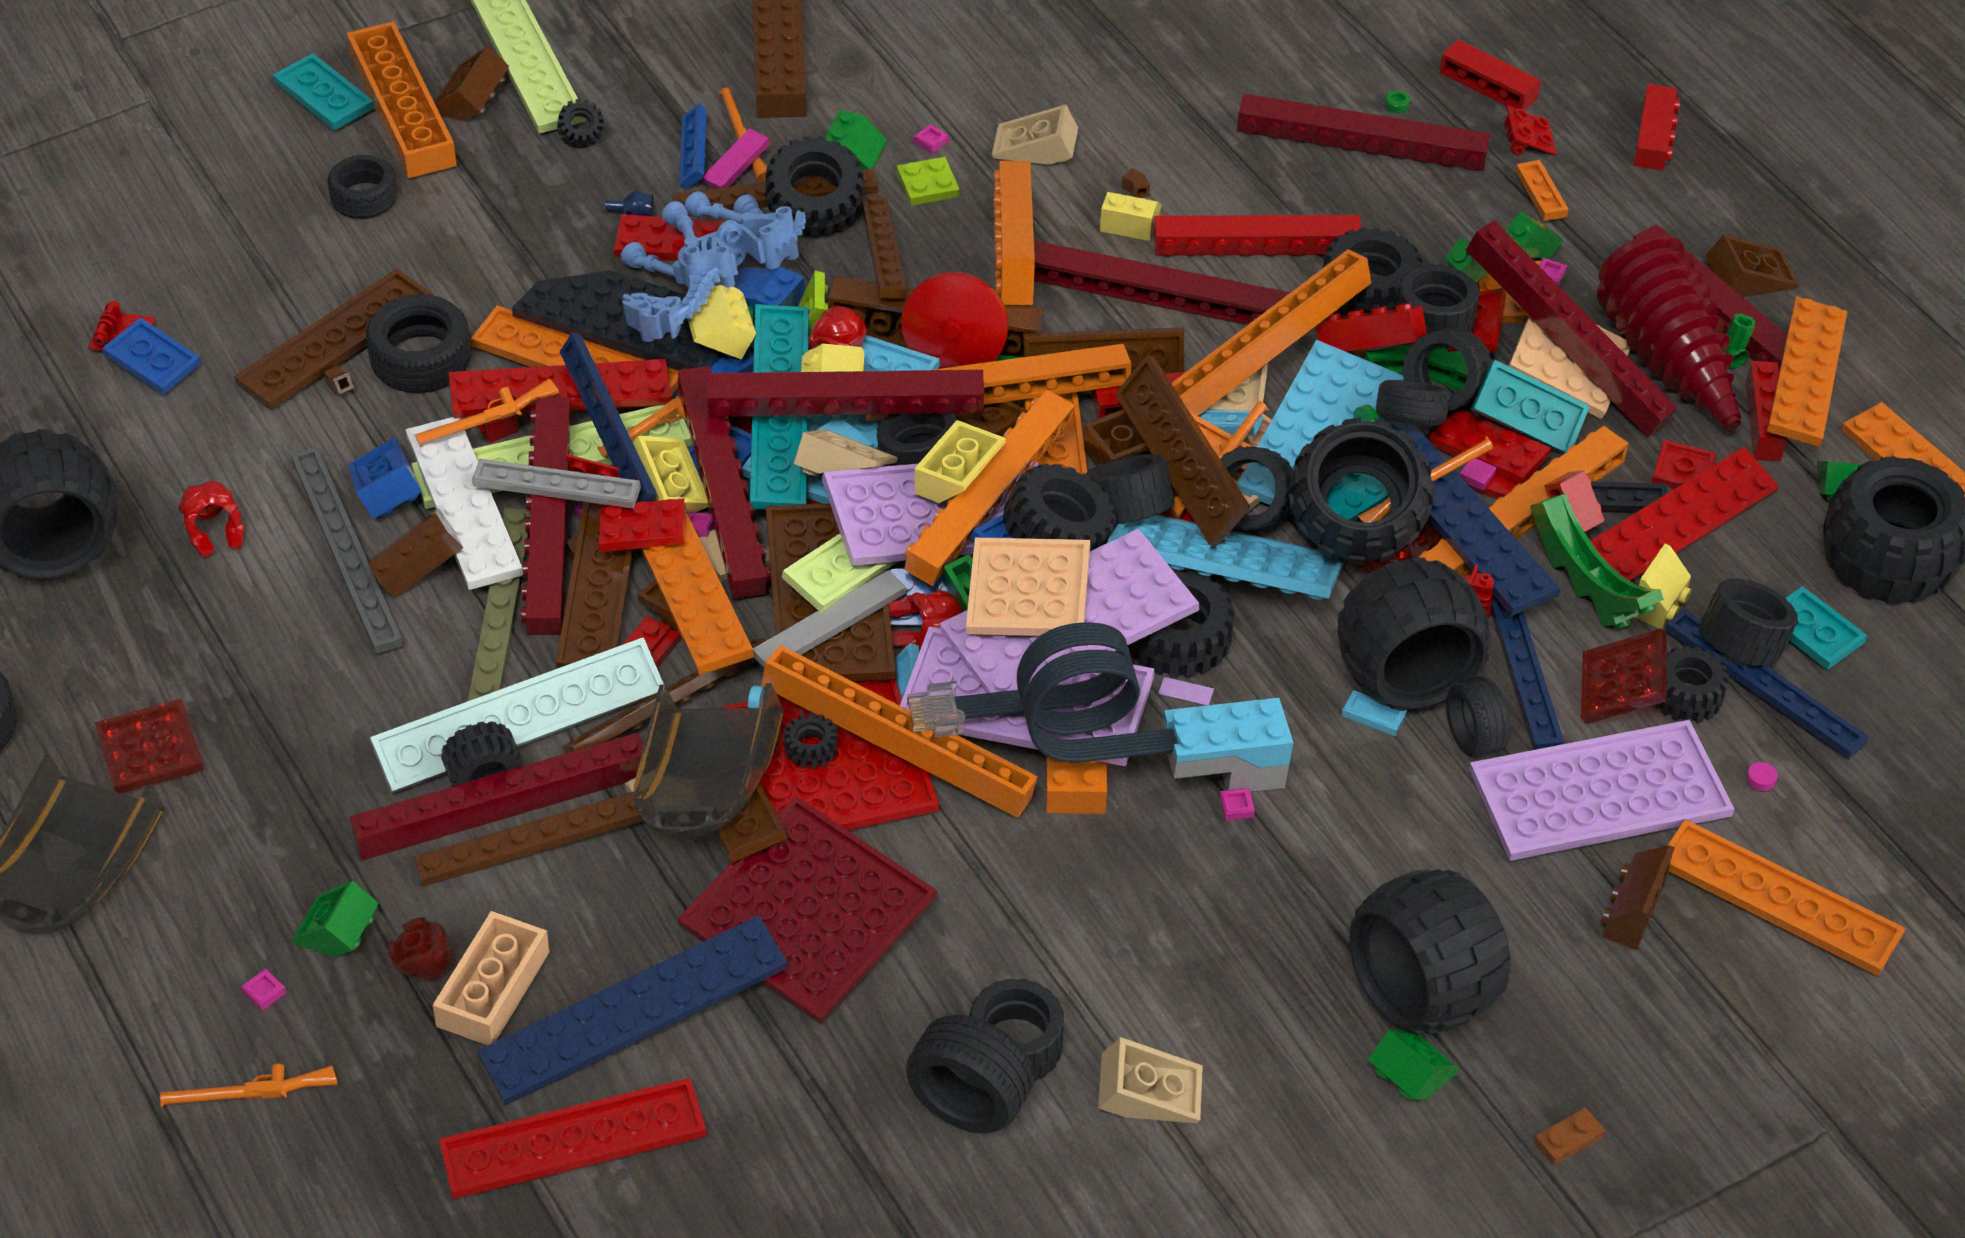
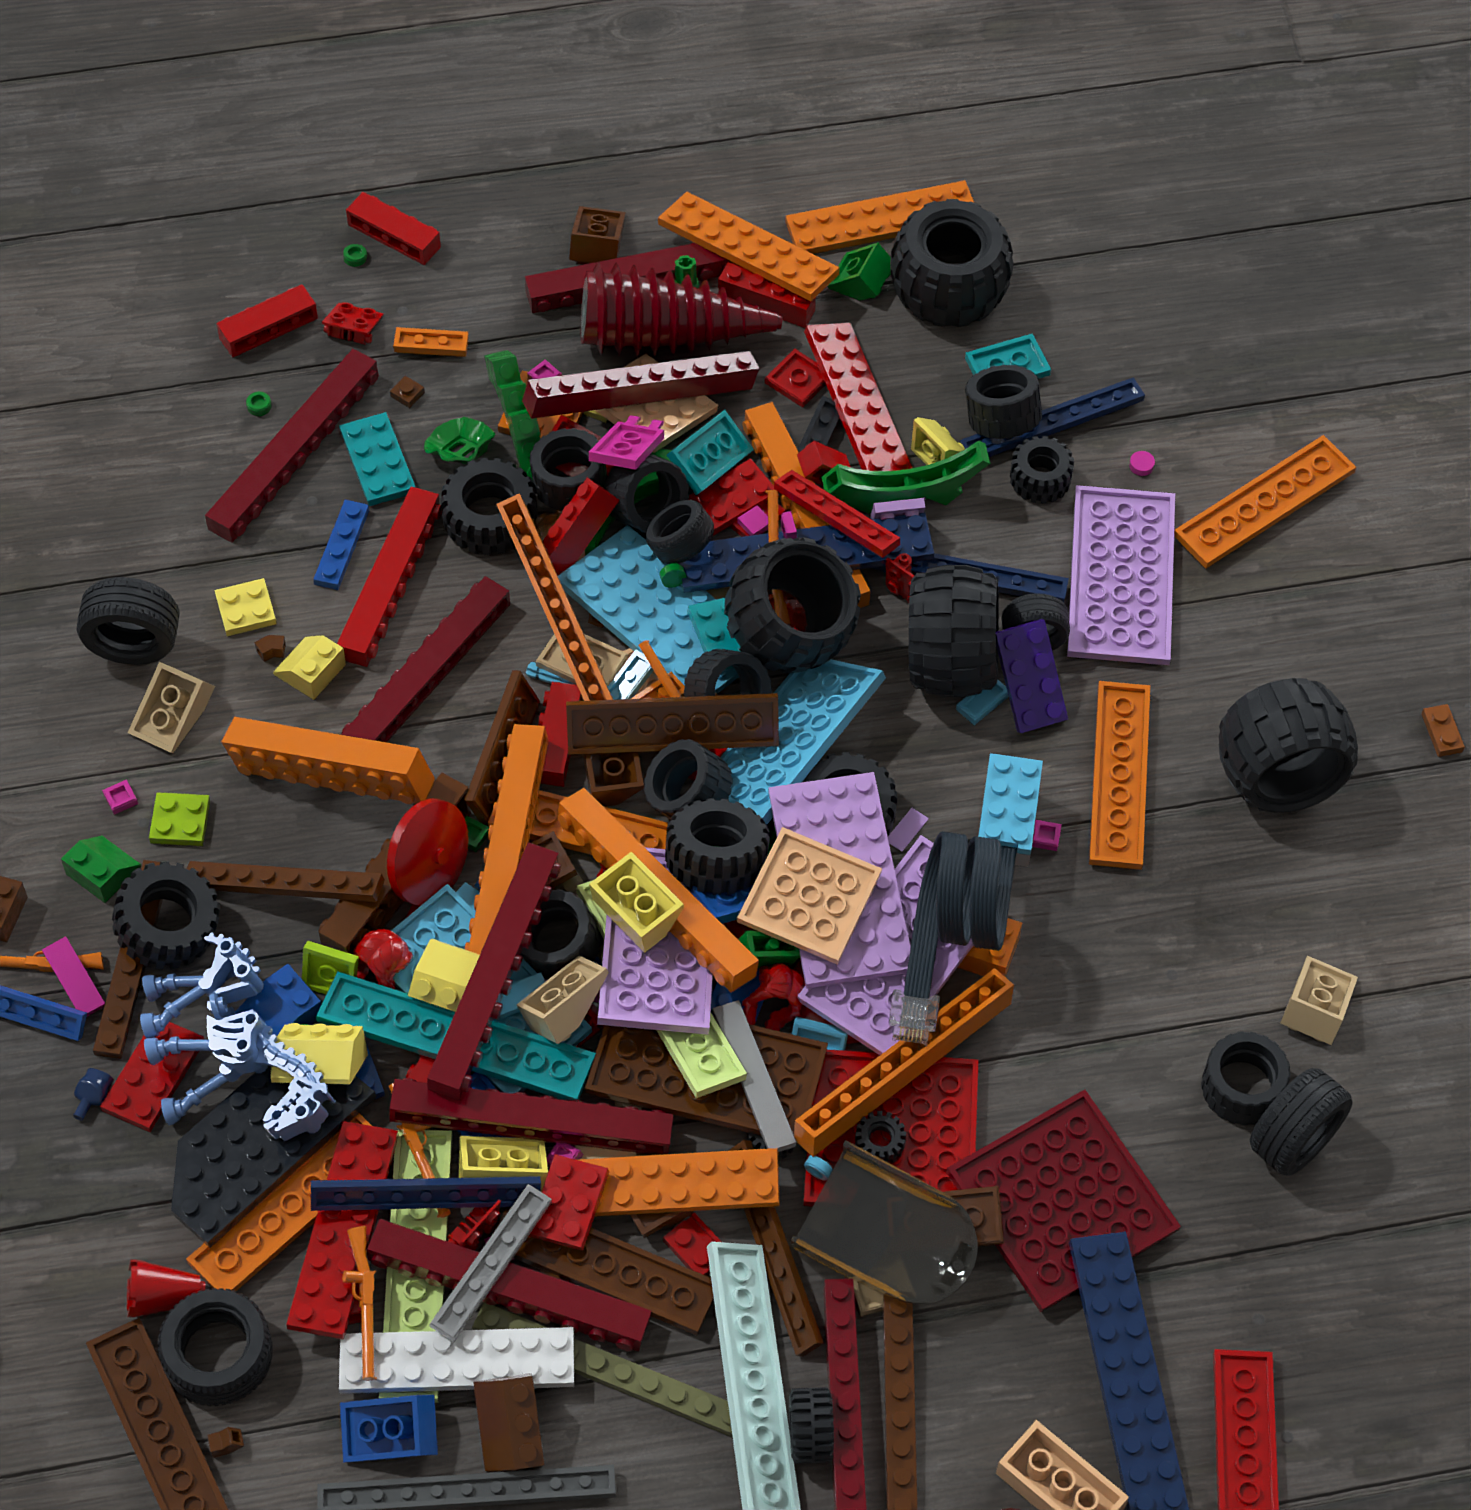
camera: 70 degrees left, 10 degrees up
(460, 284) = (158, 1288): none -> red cone
(1092, 68) = (128, 620): none -> black tyre
(1170, 157) = (245, 607): none -> light yellow plate
(1276, 198) = (341, 544): none -> blue plate
(1342, 845) = (1119, 775): none -> orange plate
(1387, 194) = (377, 458): none -> teal plate
(1408, 725) = (1030, 676): none -> dark purple plate
(1412, 1064) = (1355, 808): green slope -> none
(1430, 236) = (464, 431): none -> green piece
(1463, 479) = (788, 526): none -> dark pink tile
(1475, 193) = (407, 391): none -> reddish brown plate
(1482, 325) = (628, 443): none -> dark pink tile
(1507, 513) = (837, 513): none -> red plate
(1555, 572) = (897, 508): none -> lavender plate
(1610, 115) = (355, 255): none -> green tile
(1624, 676) = (1024, 508): clear red plate -> none
(1636, 896) = (1244, 589): reddish brown slope -> none

